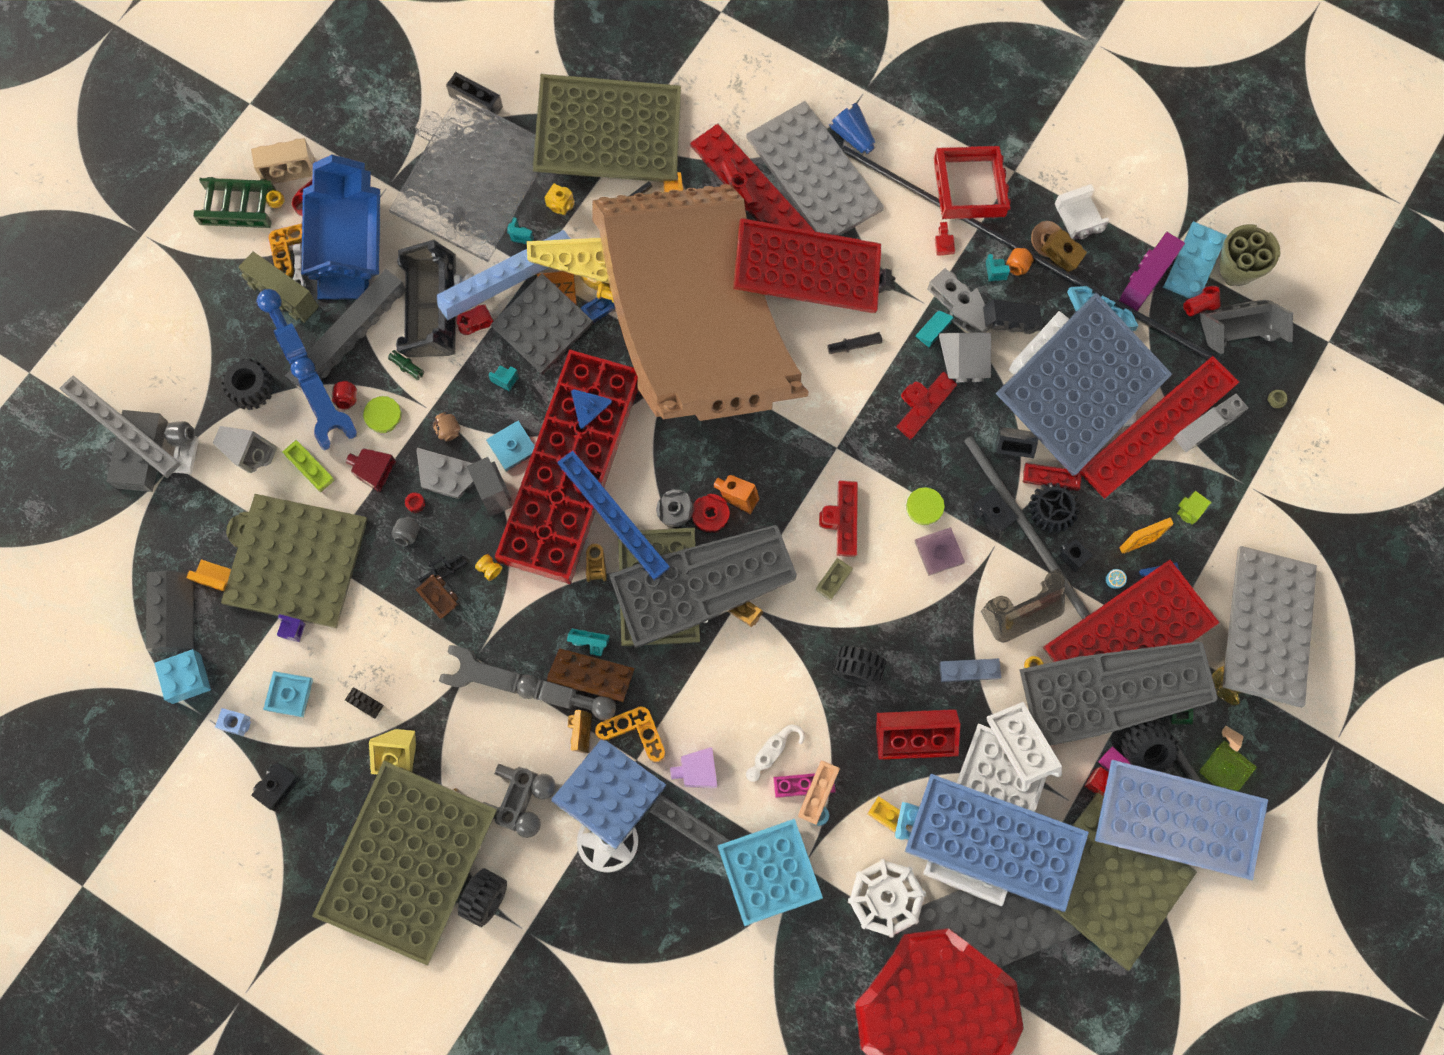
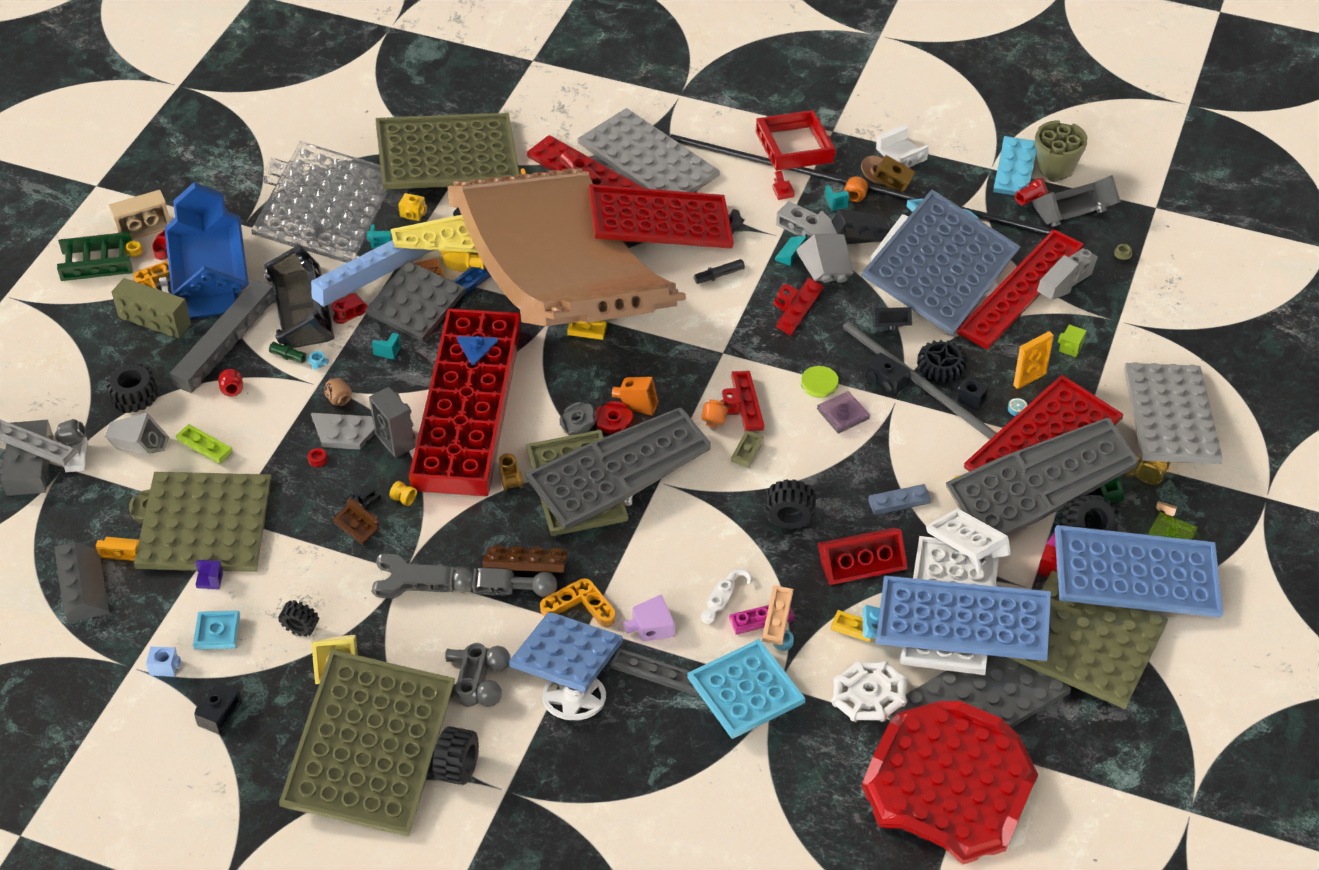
camera: 10 degrees left, 25 degrees down
(182, 676) = (103, 631): medium azure brick -> none
(304, 370) = (197, 371): blue piece -> none
(371, 467) = (268, 434): dark red torso -> none
(382, 414) = (271, 394): lime tile -> none
(405, 531) = (313, 478): dark grey head -> none
(434, 375) = (317, 359): none -> medium azure plate
(474, 92) = (319, 139): black brick -> none
(511, 445) = (411, 394): medium azure plate -> none
(581, 726) = (525, 606): pearl gold hinge -> none
(595, 640) = (525, 534): teal hinge -> none
(613, 515) = (520, 422): blue plate -> none
(747, 613) = (667, 485): pearl gold hinge -> none
(810, 530) = (714, 413): none -> orange head
(854, 129) = (676, 118): blue cone -> none
(1013, 621) = (938, 441): clear smoke windscreen -> none
(1044, 475) = (915, 341): red tile -> none
(1151, 270) = (978, 175): magenta brick -> none

